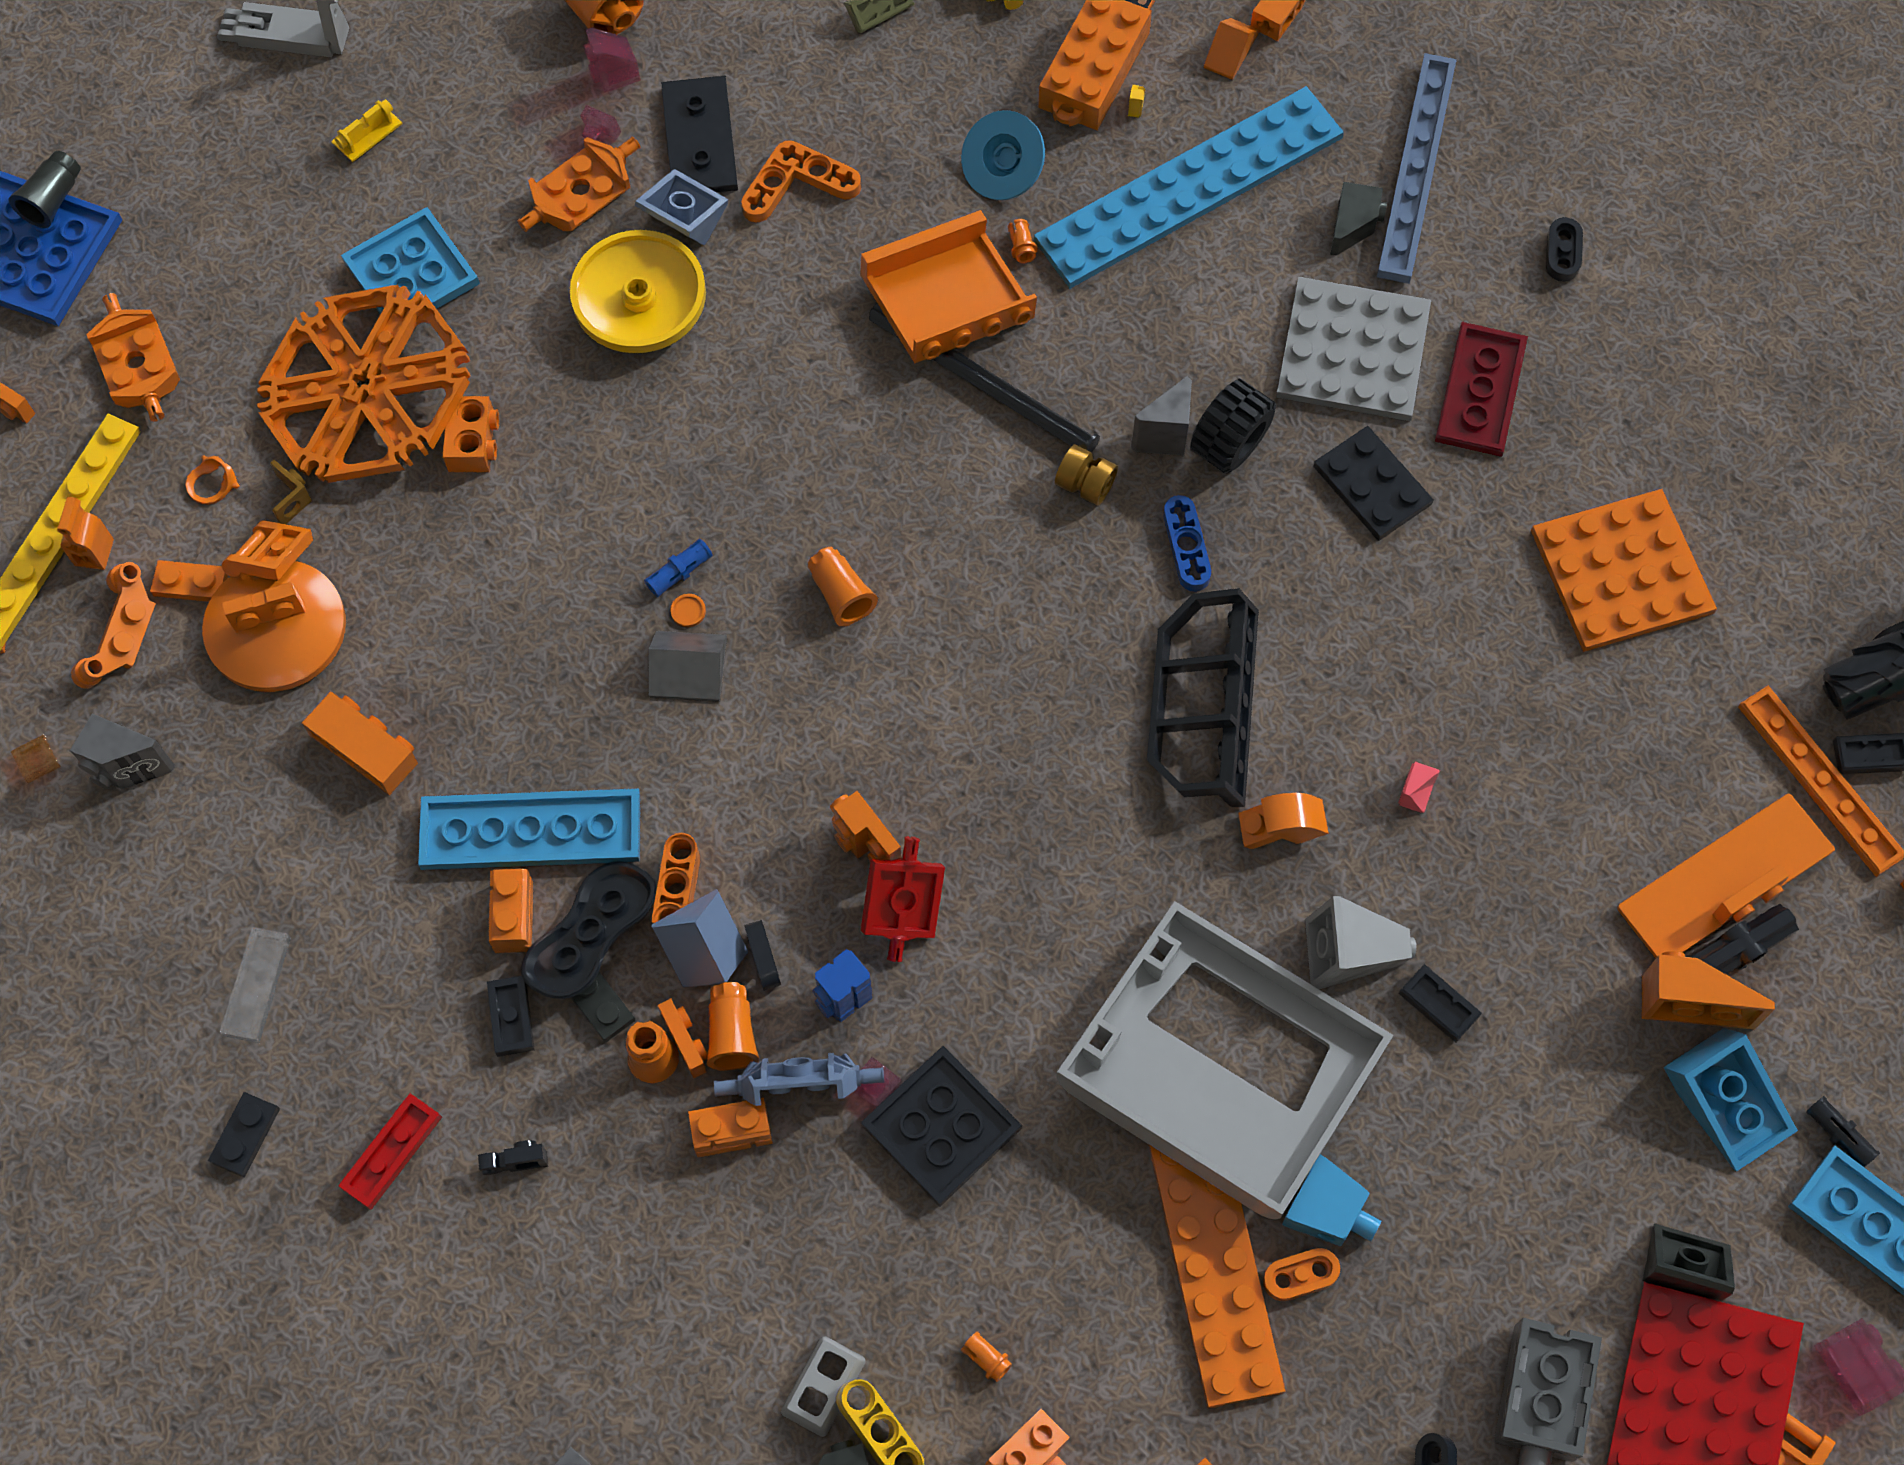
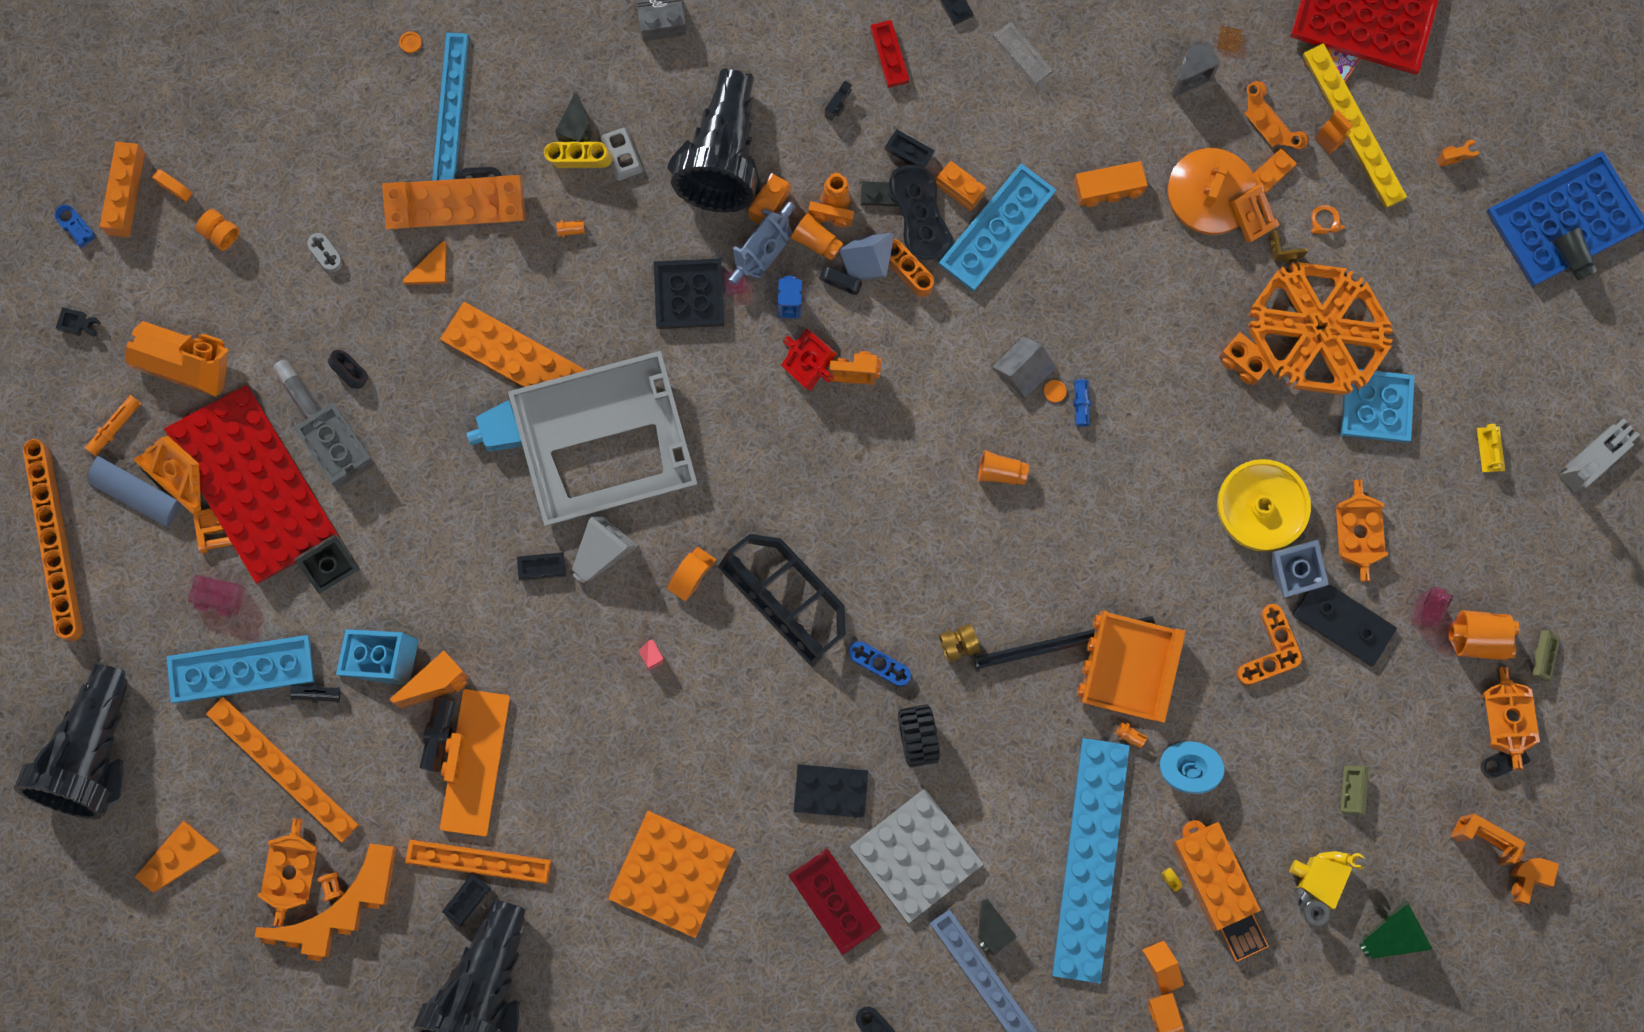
camera: 125 degrees right, 10 degrees up
(126, 336) = (1450, 231): orange plate -> none
(599, 125) = (1392, 569): clear pink tile -> none
(733, 1226) = (717, 166): none -> black cone
(1164, 422) = (950, 708): flat silver slope -> none
(1300, 1274) = (480, 391): orange plate -> none

